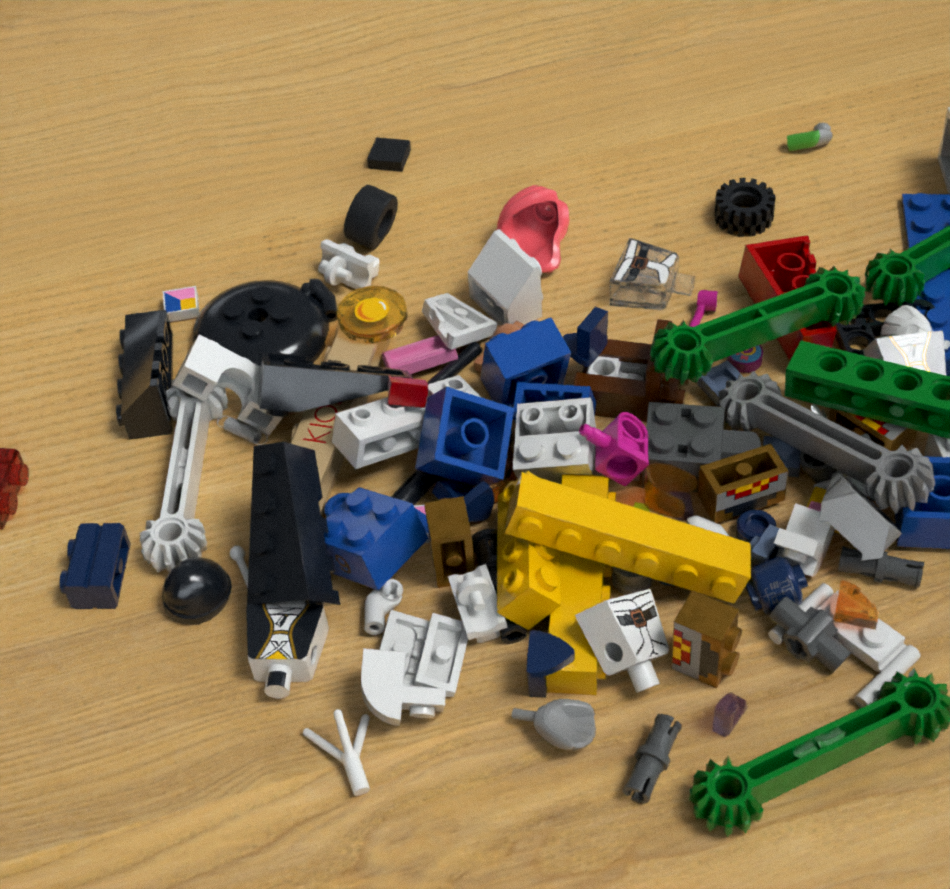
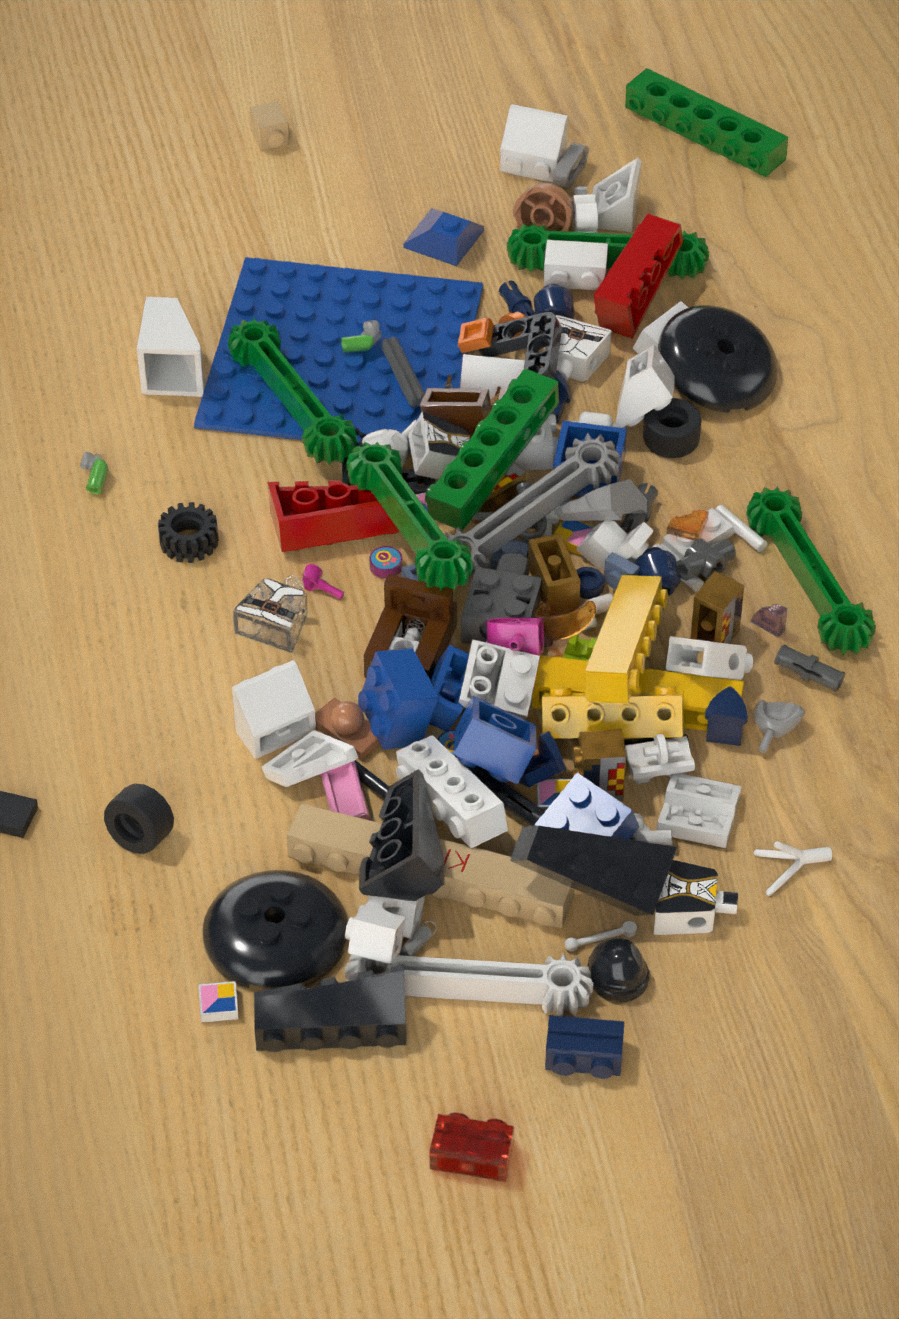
camera: 90 degrees left, 0 degrees up
(324, 296) = (231, 874): black arm -> none
(345, 266) = (204, 847): white hips -> none
(372, 314) = (307, 809): clear yellow tile -> none
(384, 689) = (745, 816): white brick -> none
(407, 392) = (441, 767): red slope -> none
(536, 225) = (194, 690): coral piece -> none
(590, 337) = (383, 635): dark blue tile -> none

